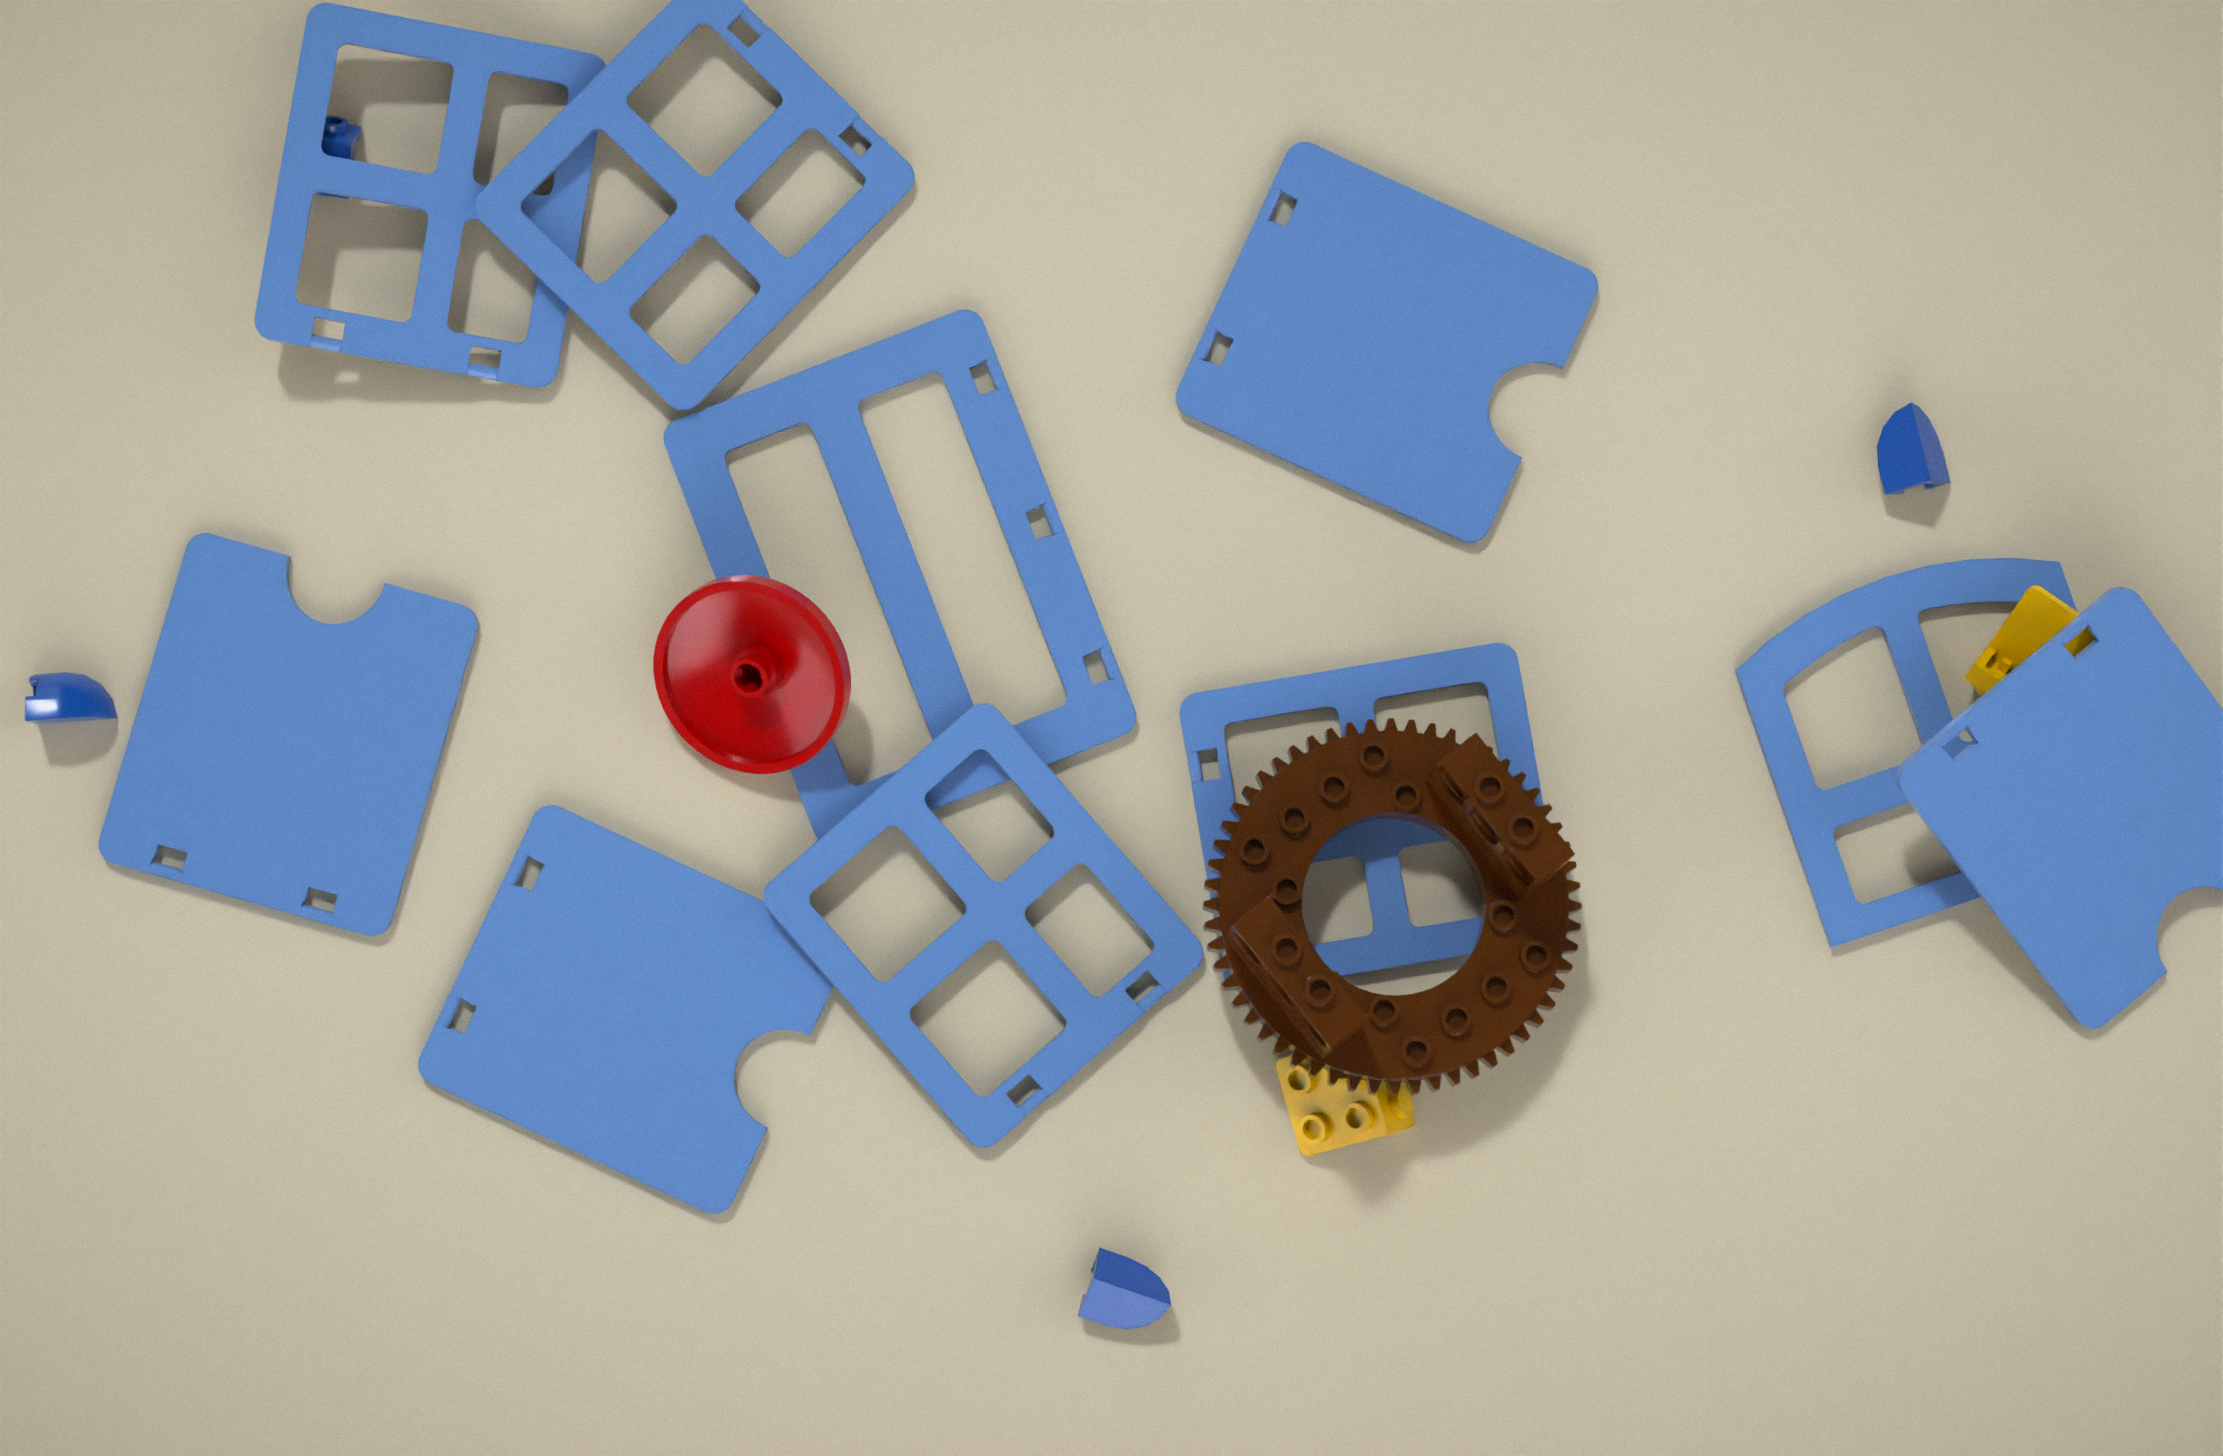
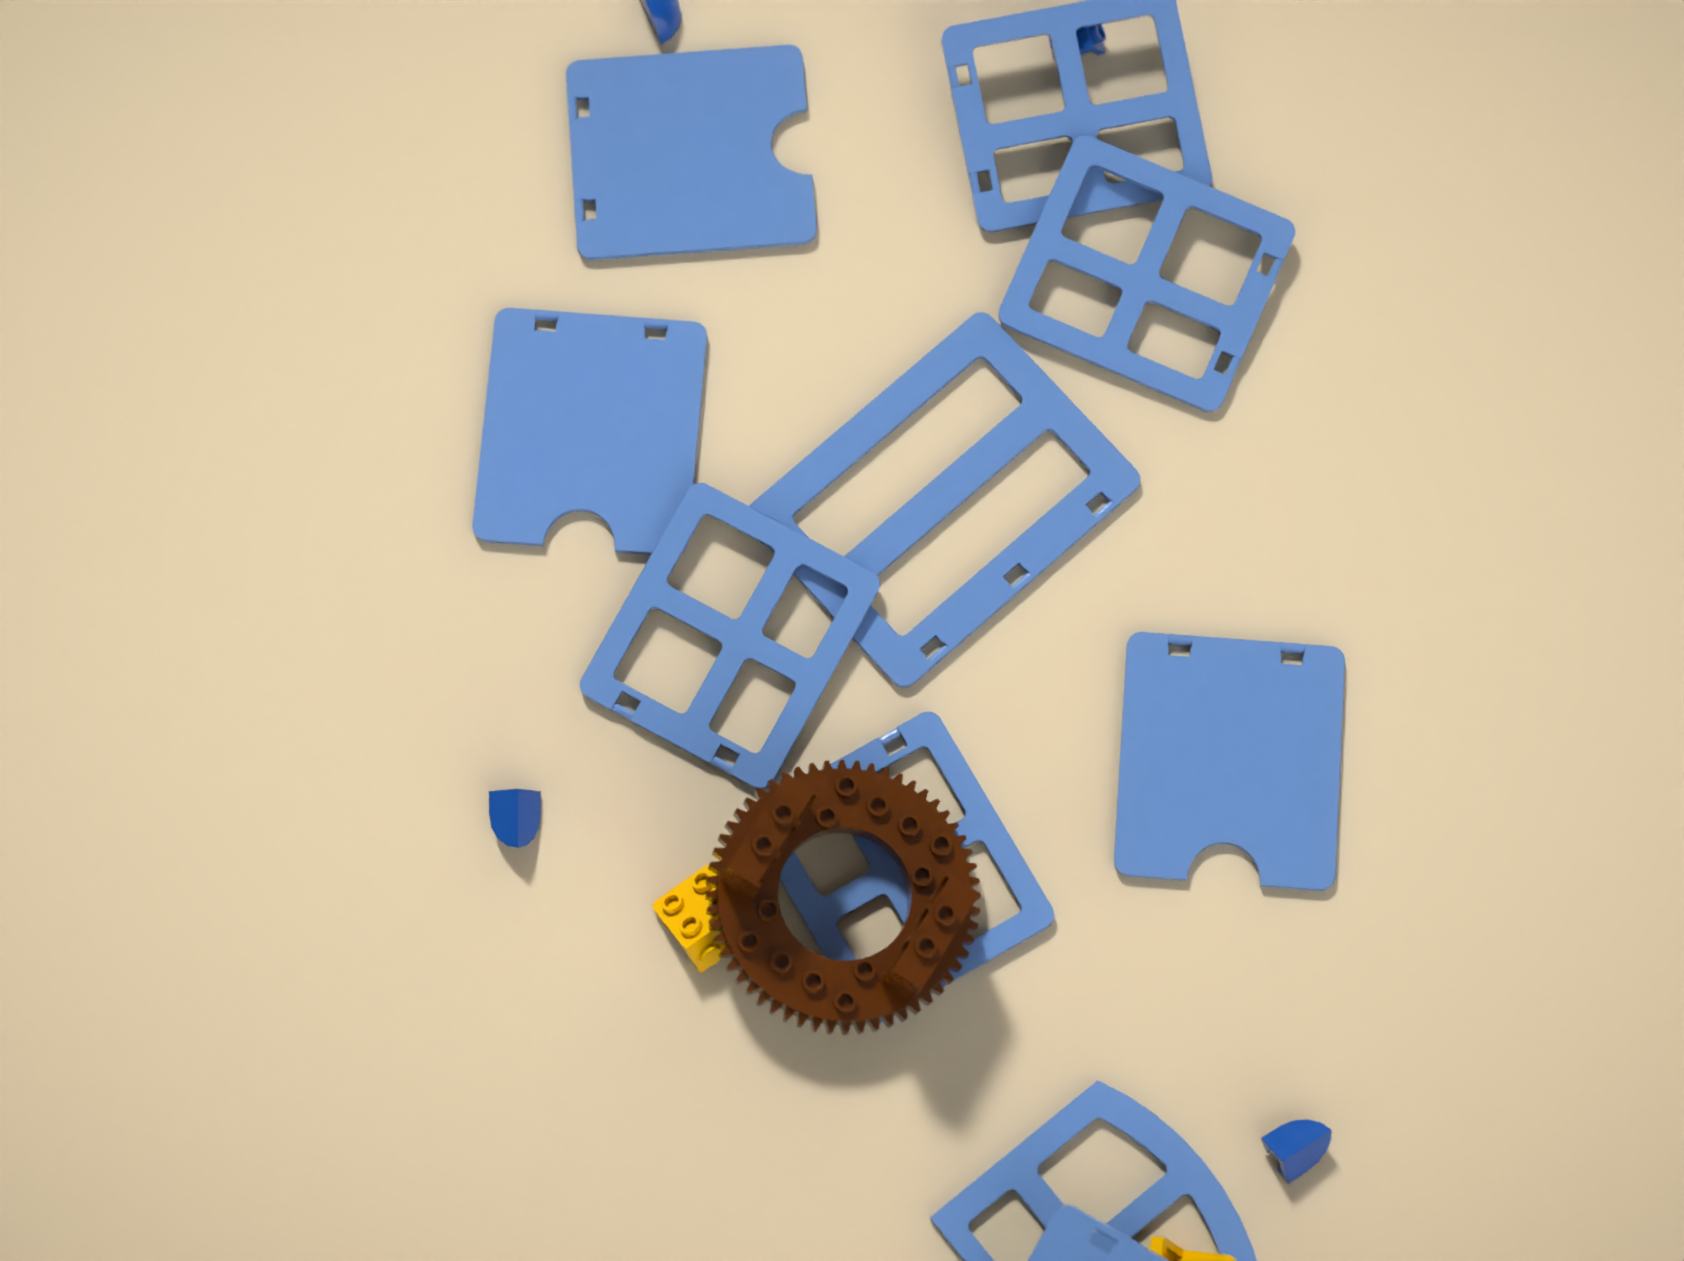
camera: 70 degrees right, 10 degrees down
(752, 674) = (839, 420): red dish -> none

